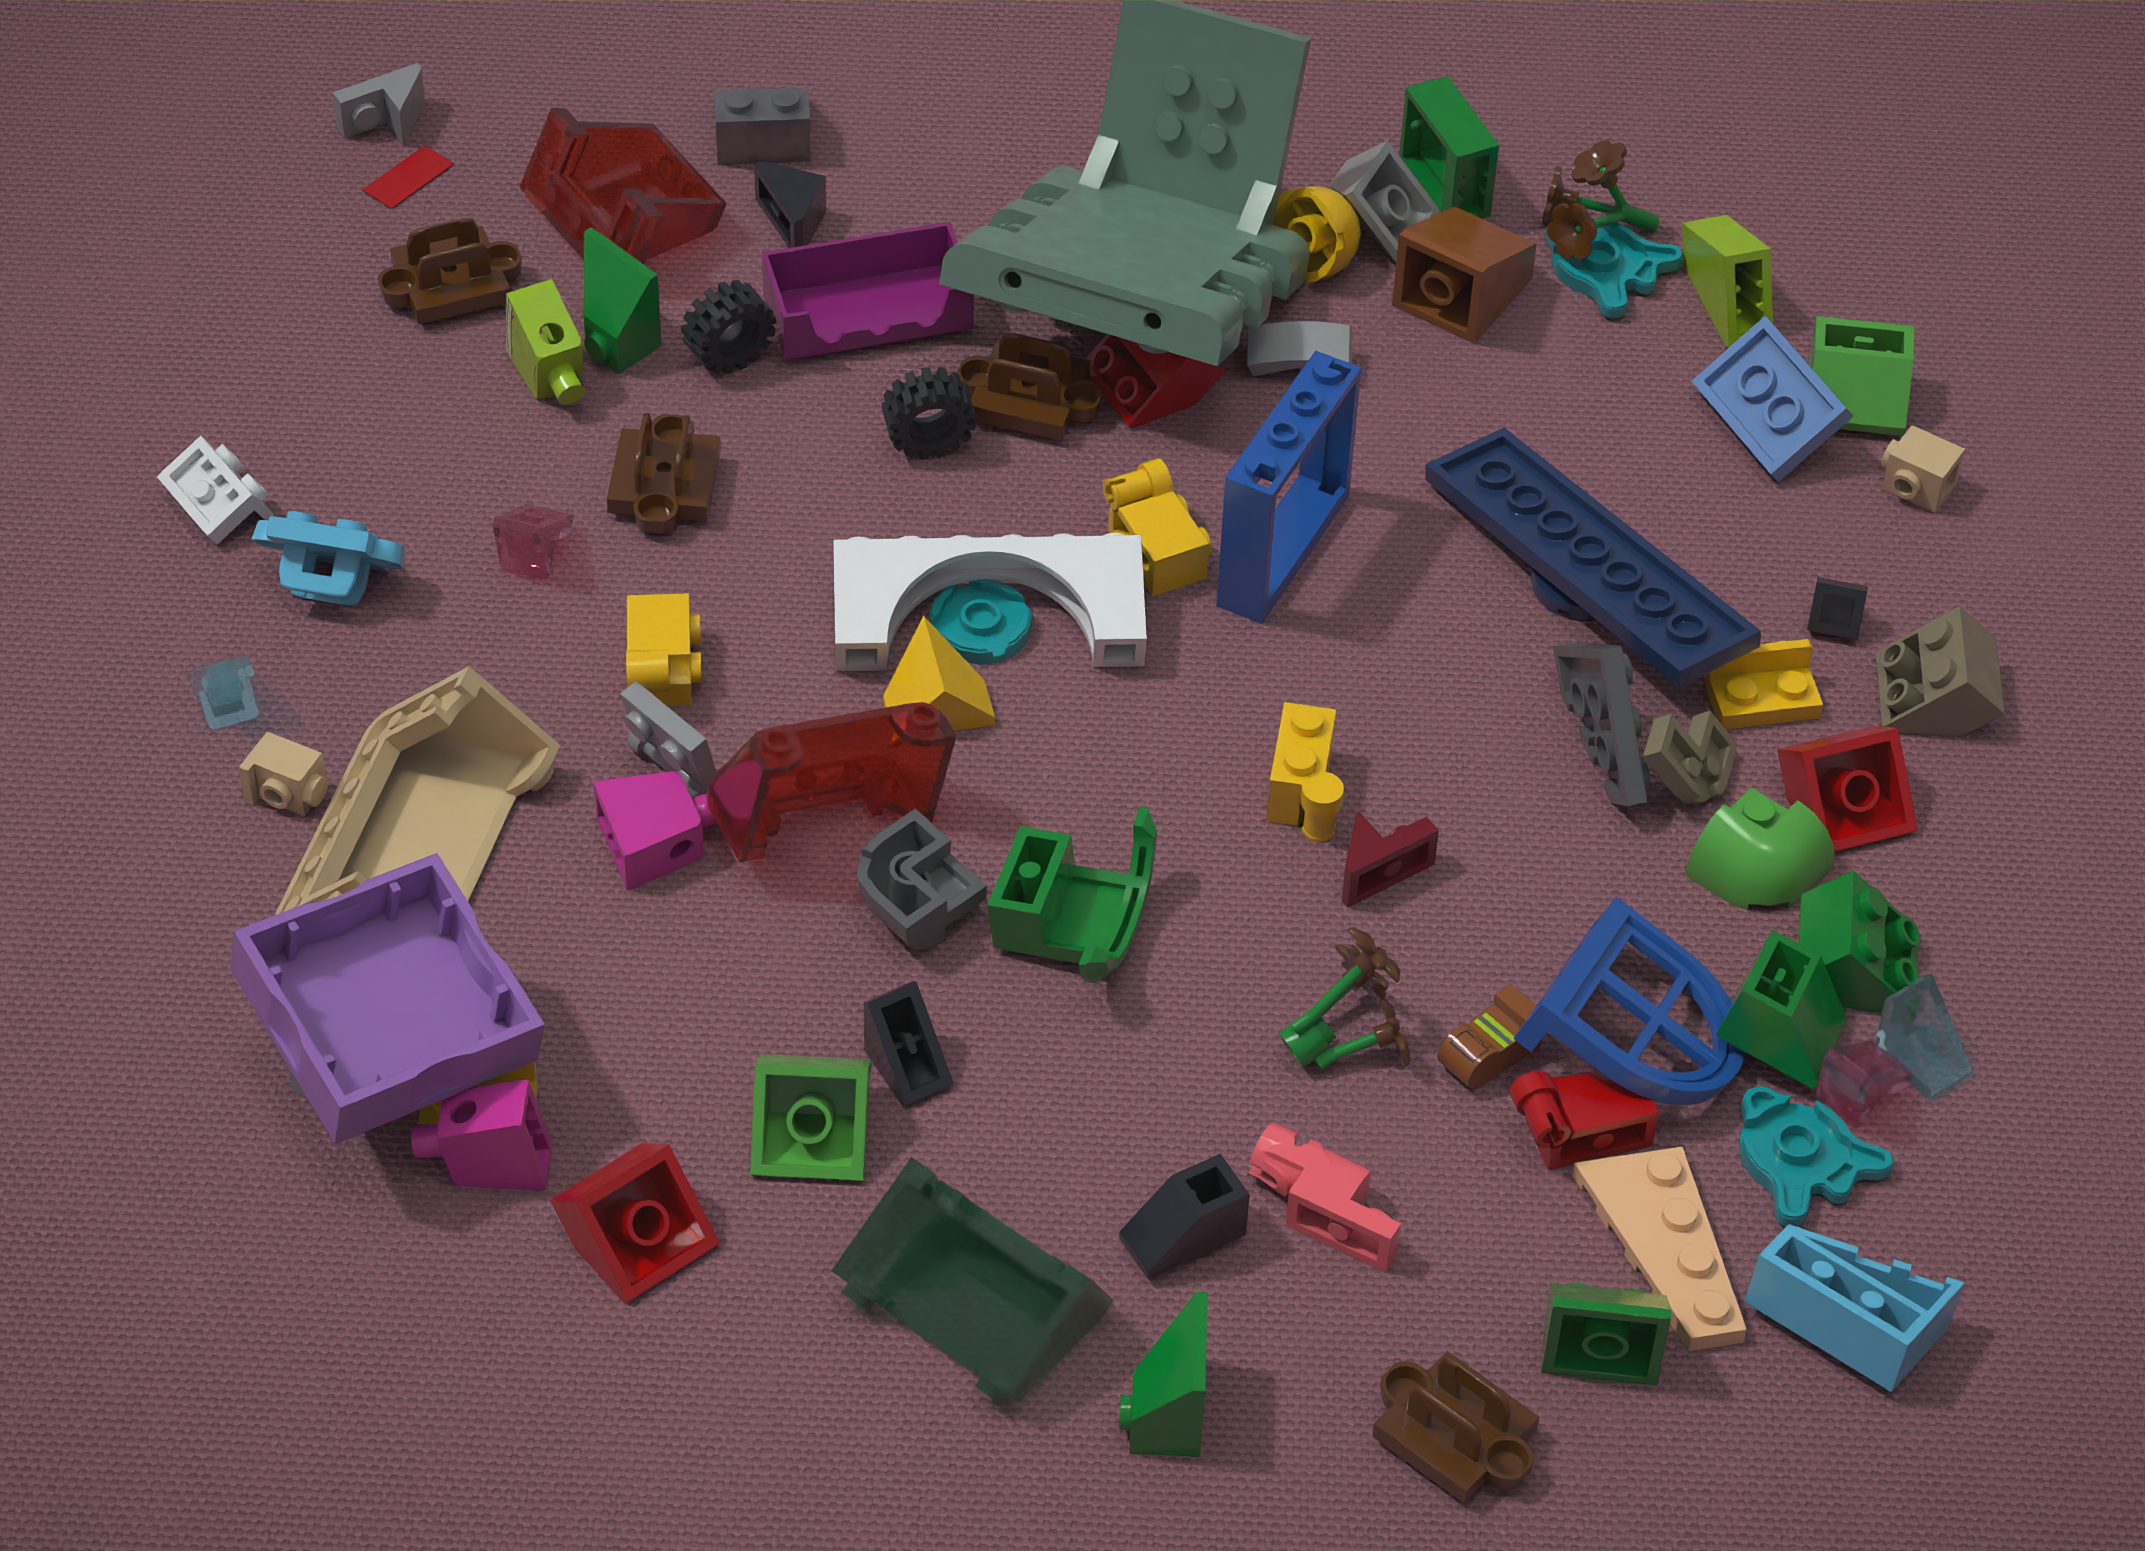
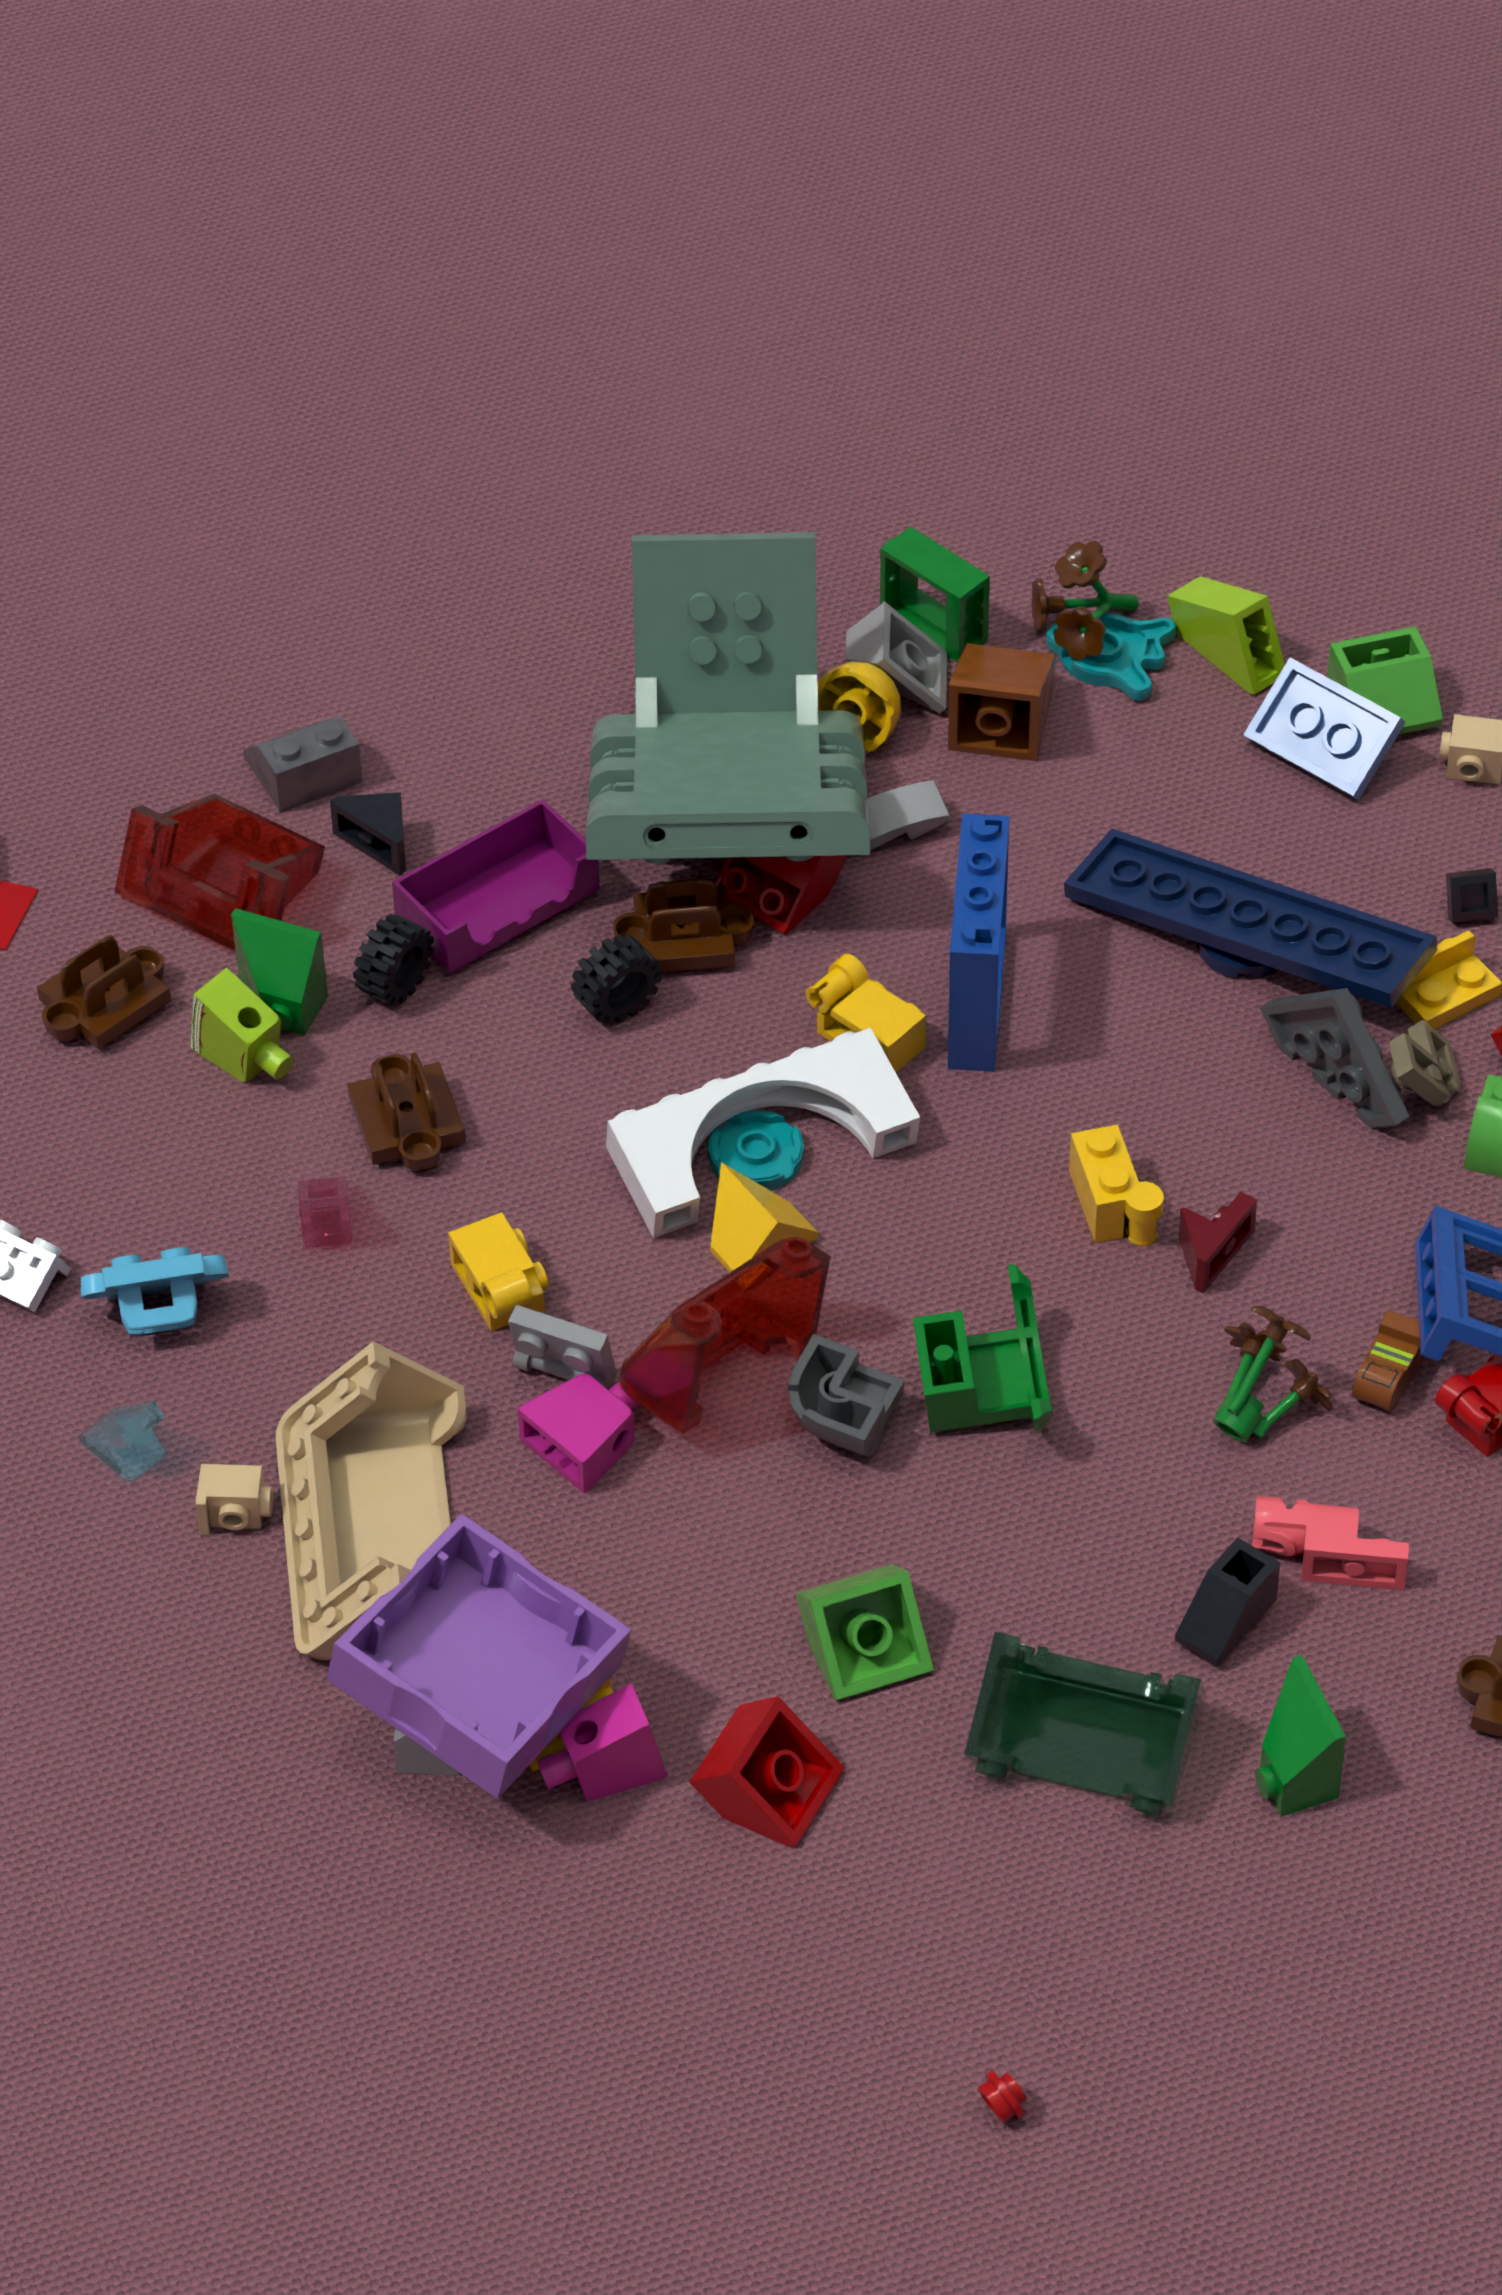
camera: 20 degrees left, 0 degrees up
(904, 1044) = (909, 1538): black slope -> none

